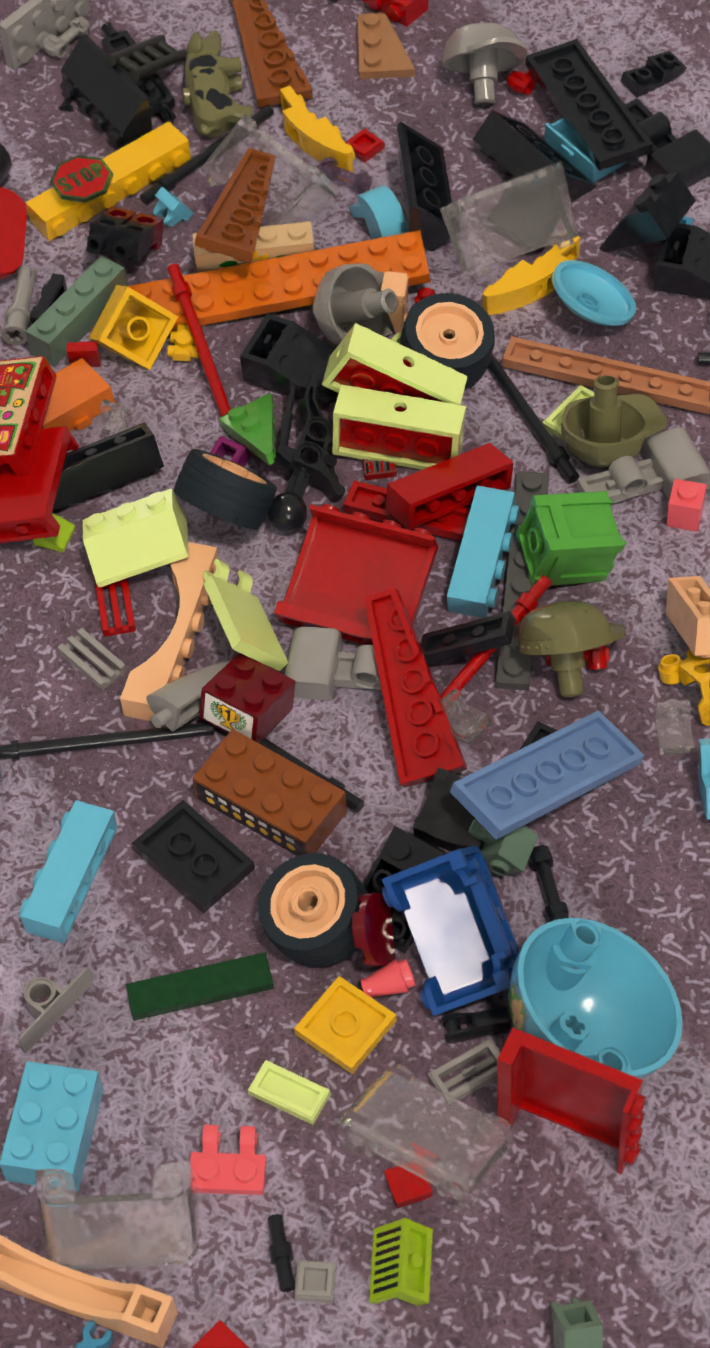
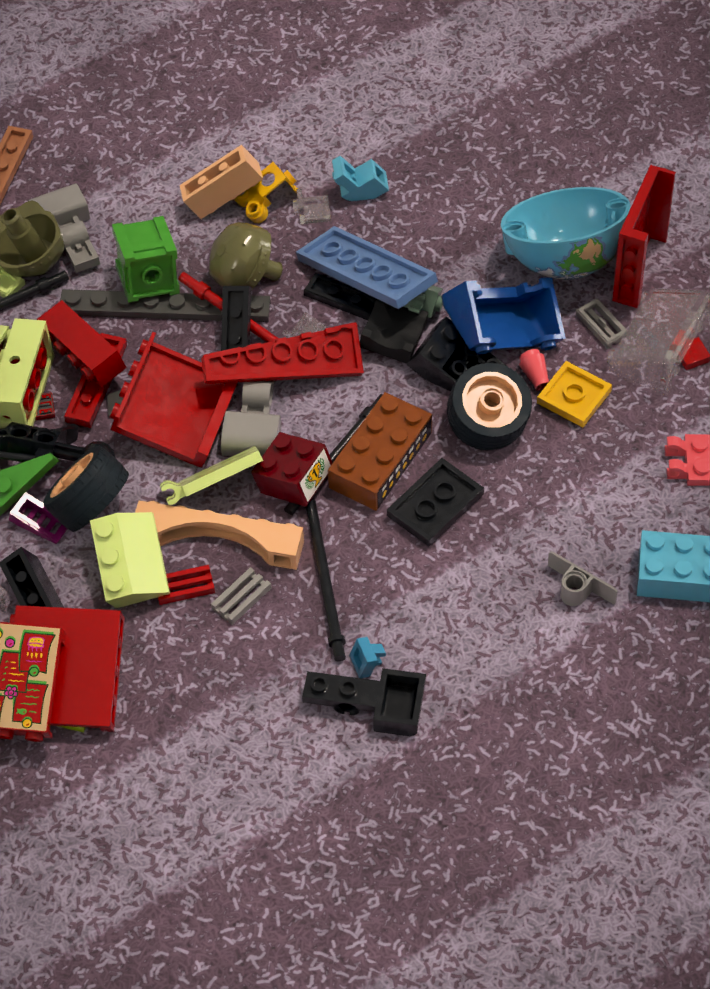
camera: 95 degrees left, 0 degrees up
(68, 871) = (456, 583): medium azure brick -> none
(181, 698) = (288, 504): light grey piece -> none
(199, 986) = (548, 491): dark green tile -> none
(289, 1092) = (630, 428): yellowish green tile -> none
(374, 930) = (518, 362): dark red tile -> none
(482, 551) = (138, 320): medium azure brick -> none
(482, 1024) = (568, 317): black bar -> none
(542, 862) = (468, 274): black bar -> none
(686, 505) = (103, 200): coral brick -> none

